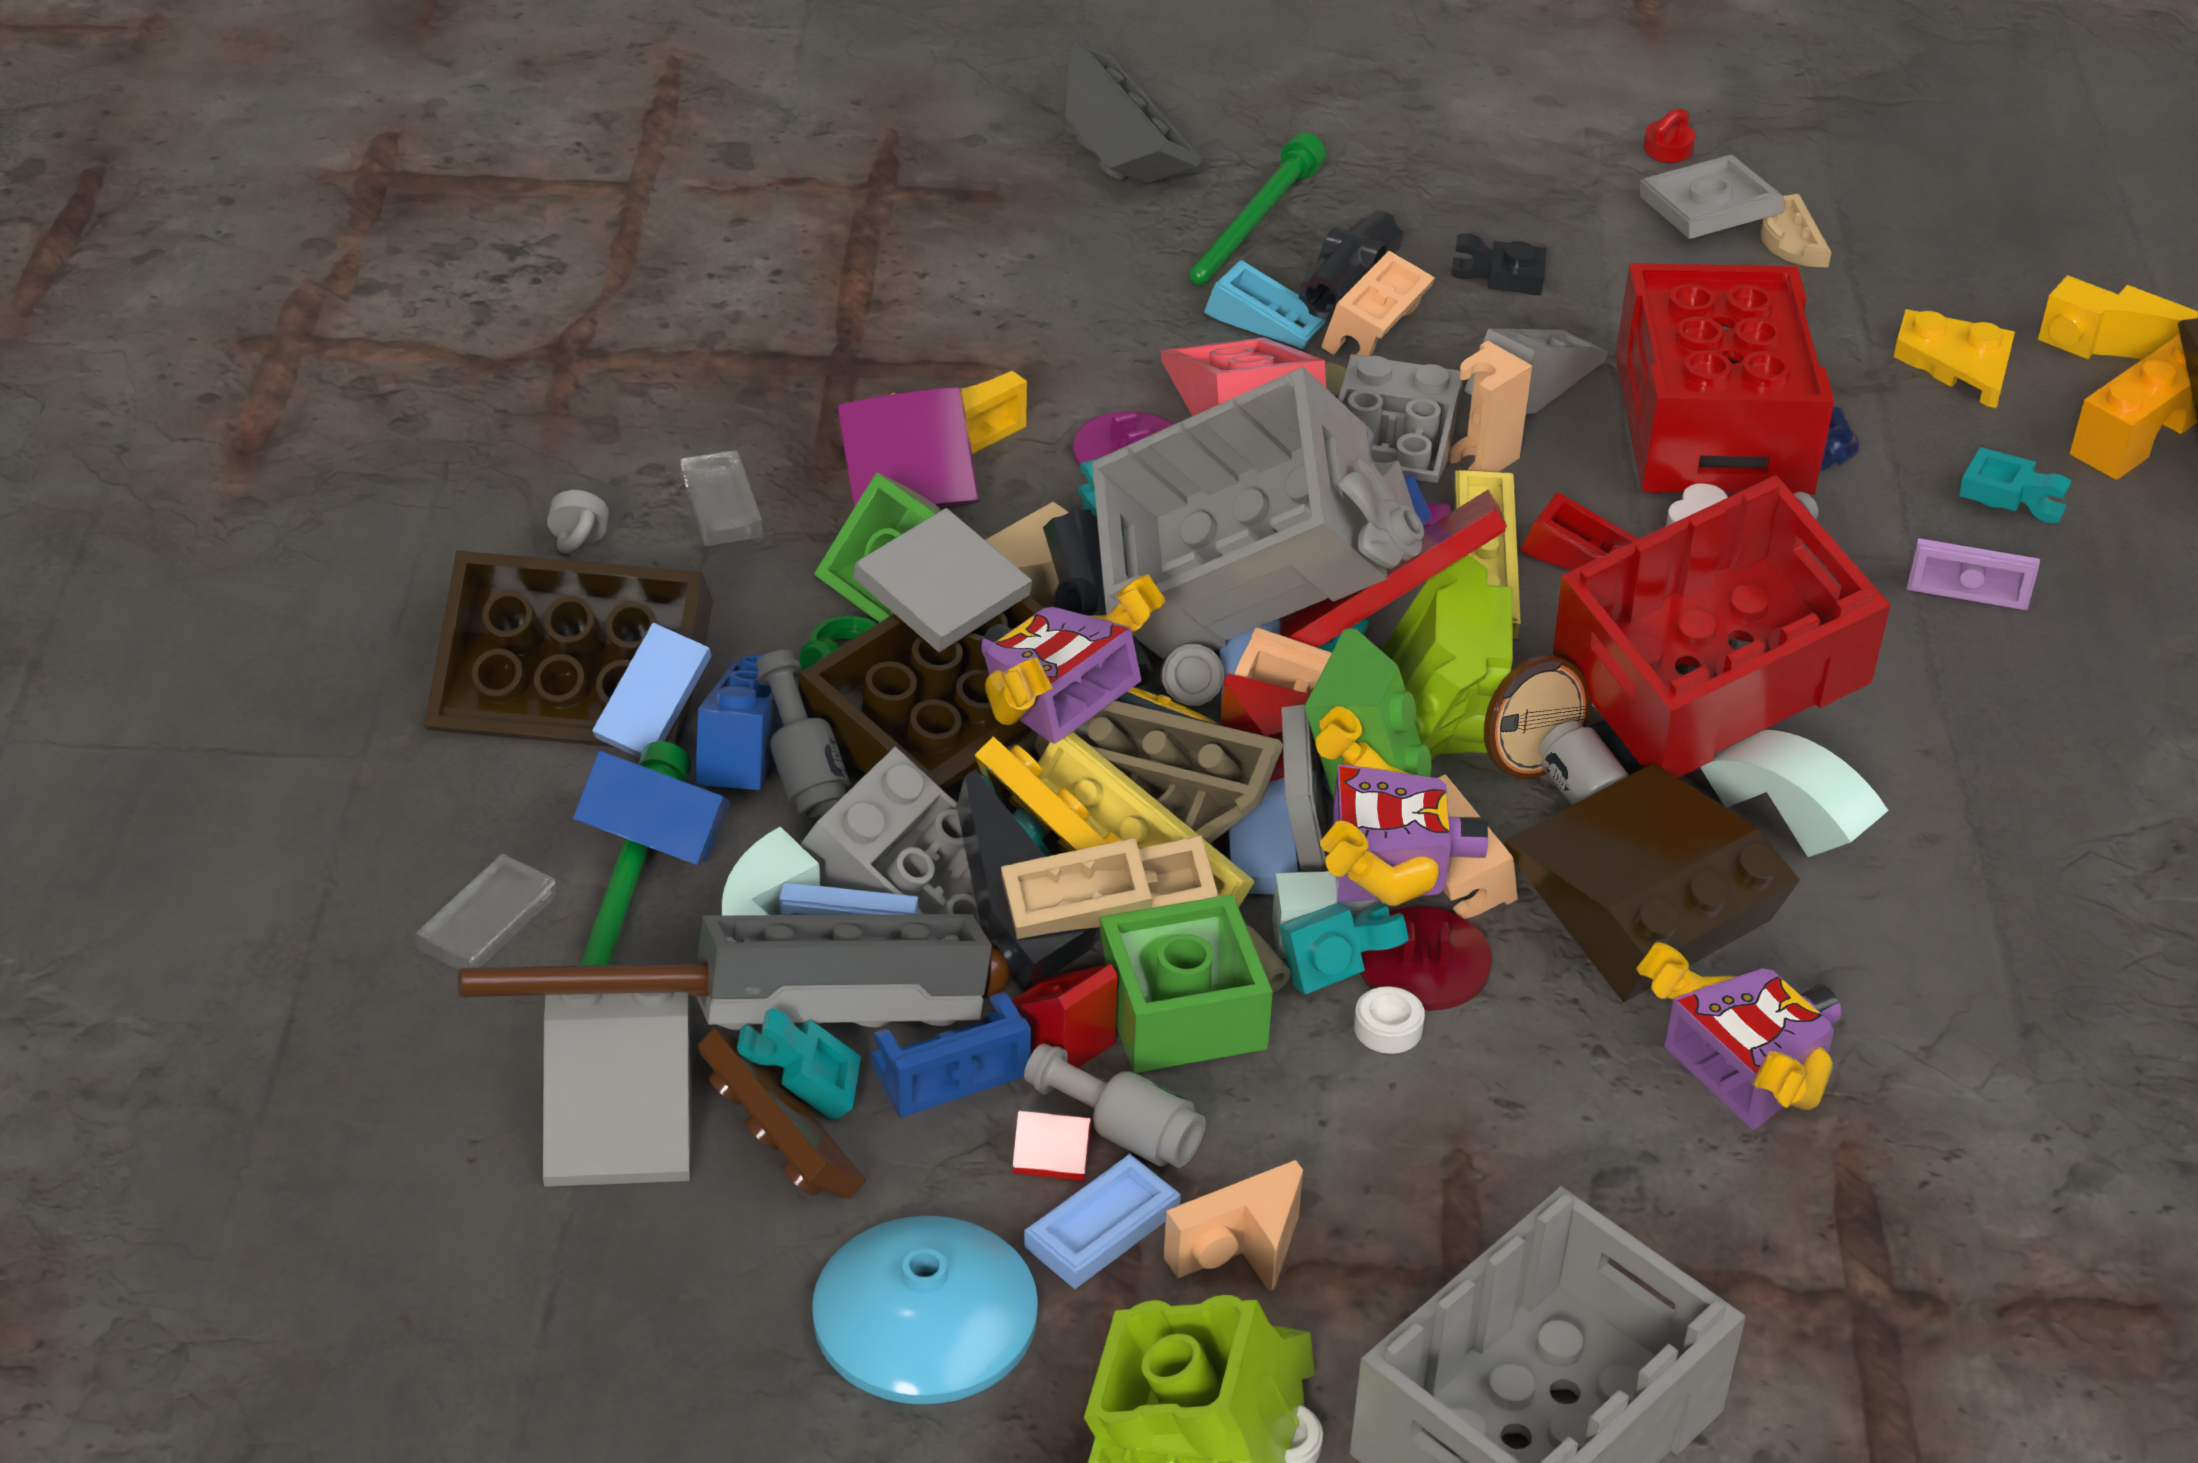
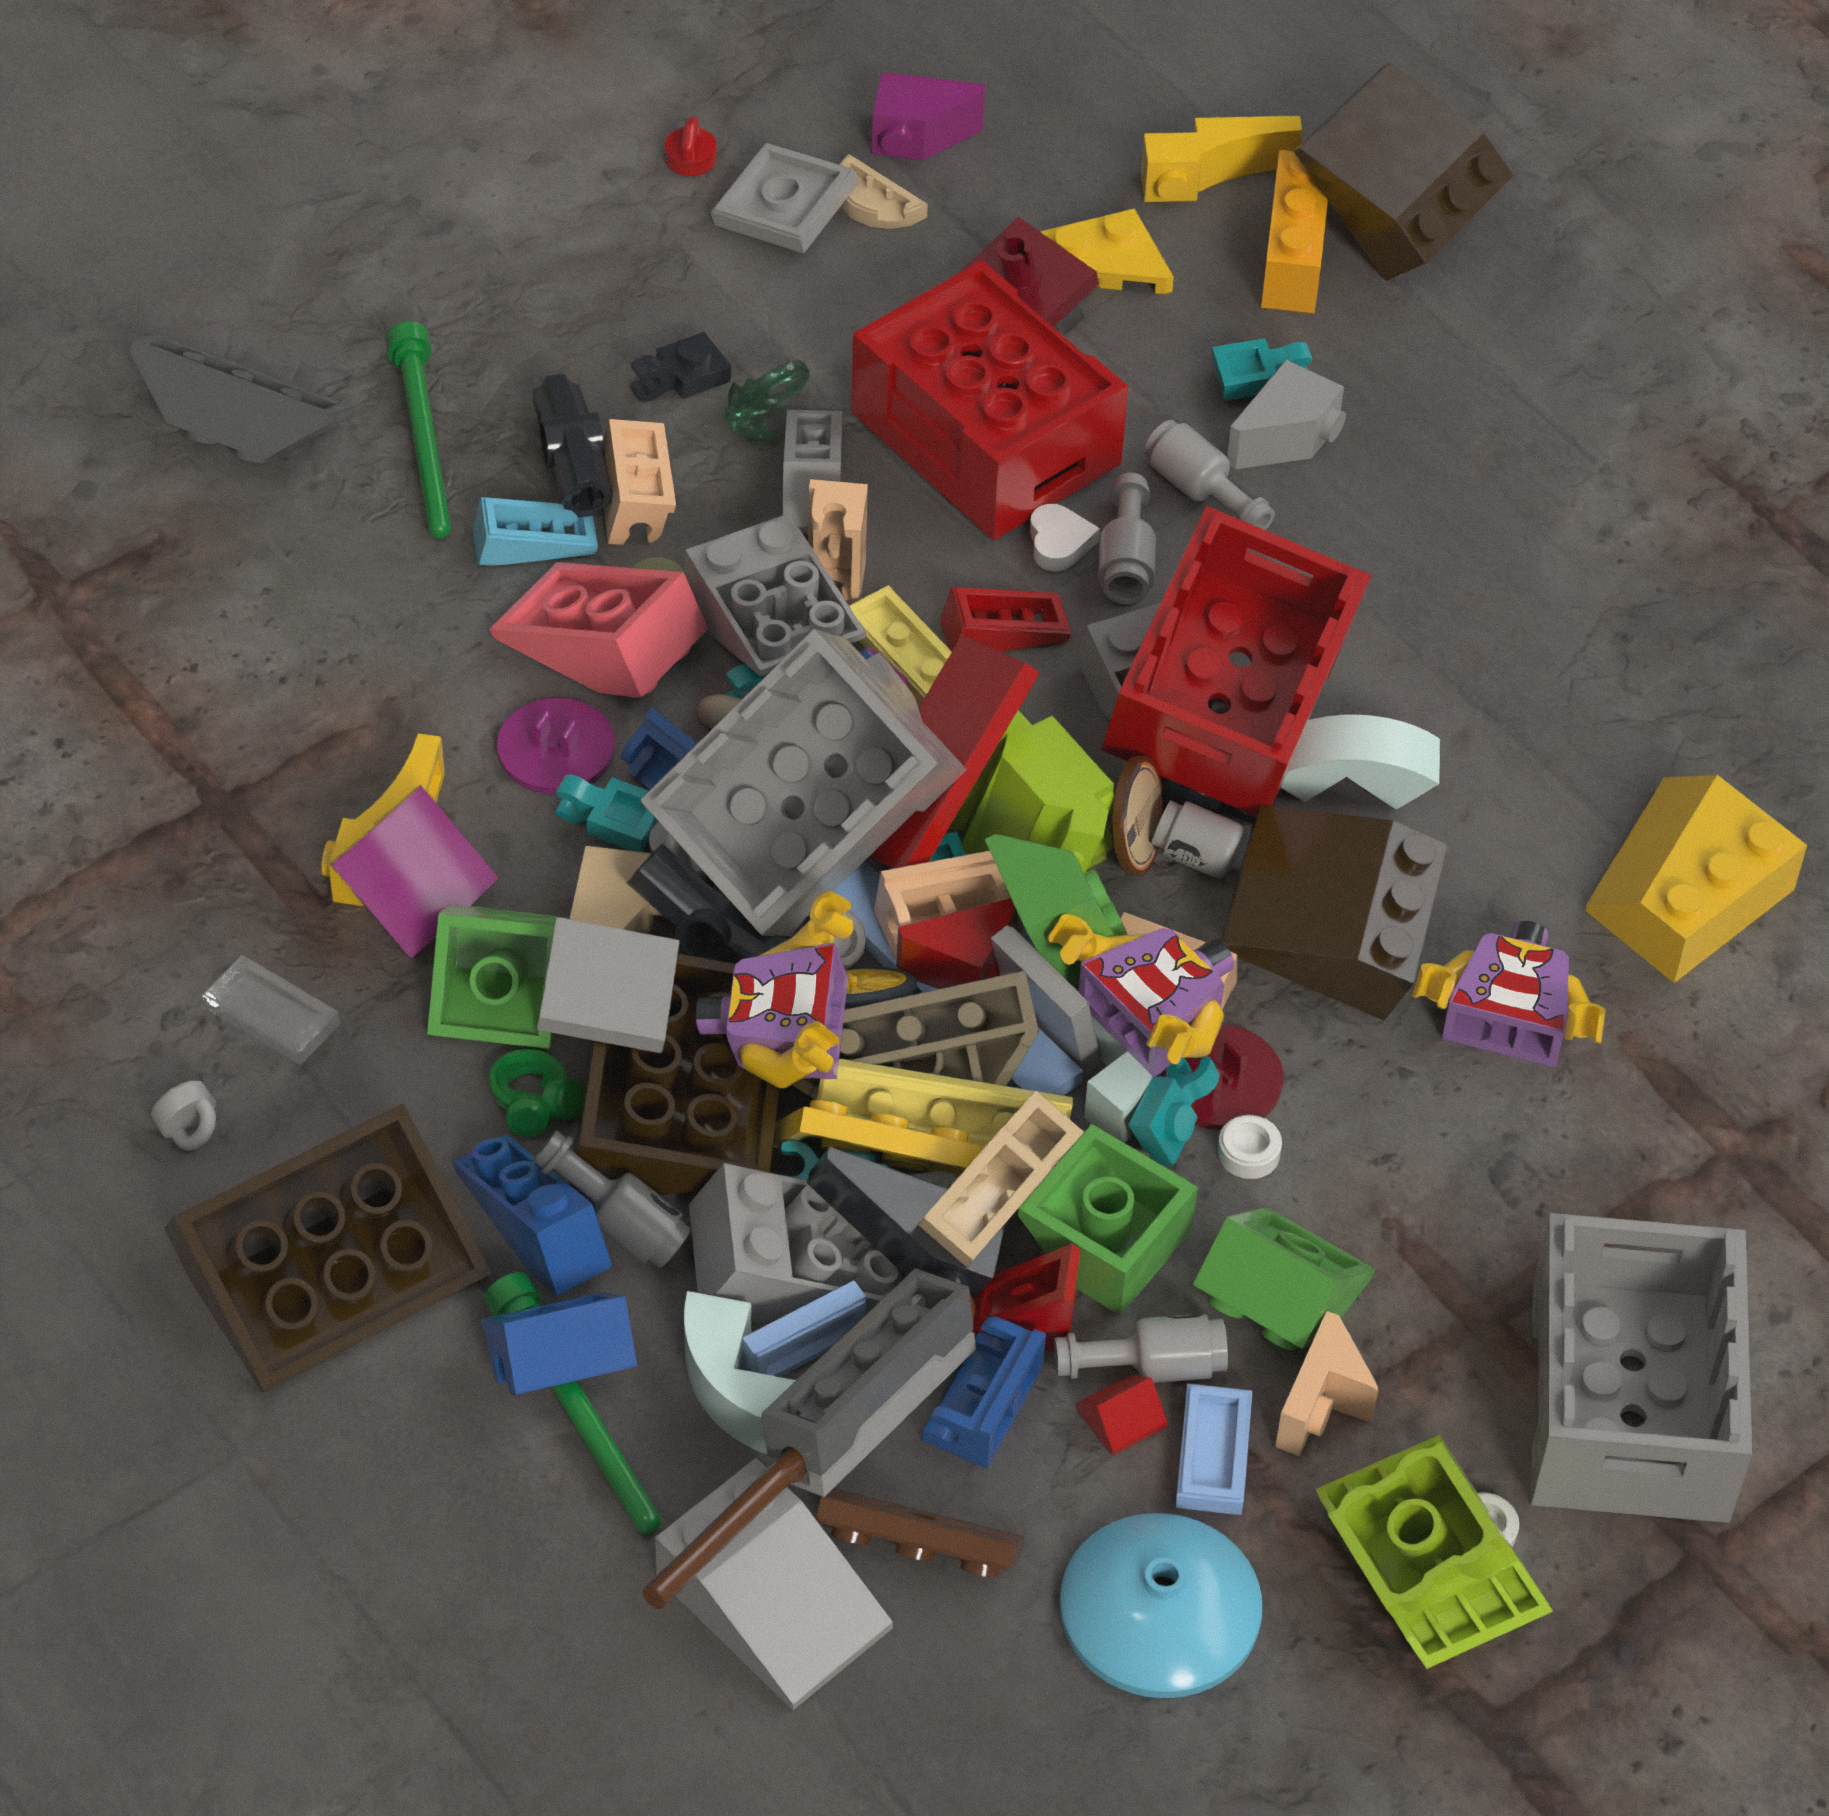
camera: 40 degrees left, 10 degrees up
(486, 913) = (505, 1521): clear tile -> none
(652, 690) = (446, 1237): light blue tile -> none
(814, 1061) = (904, 1472): teal plate -> none
(1303, 1107) = (1279, 1276): none -> bright green slope
(1391, 529) = (947, 723): light grey plate -> none
(1528, 303) = (754, 399): none -> clear green piece
(1862, 331) = (1040, 270): none -> dark red tile
(1878, 530) = (1195, 463): none -> light grey piece
(1890, 194) = (924, 115): none -> magenta slope
(1972, 574) = (1305, 475): lavender slope -> none
(1998, 517) = (1287, 419): none -> light grey slope
(2048, 1057) = (1695, 873): none -> yellow wedge

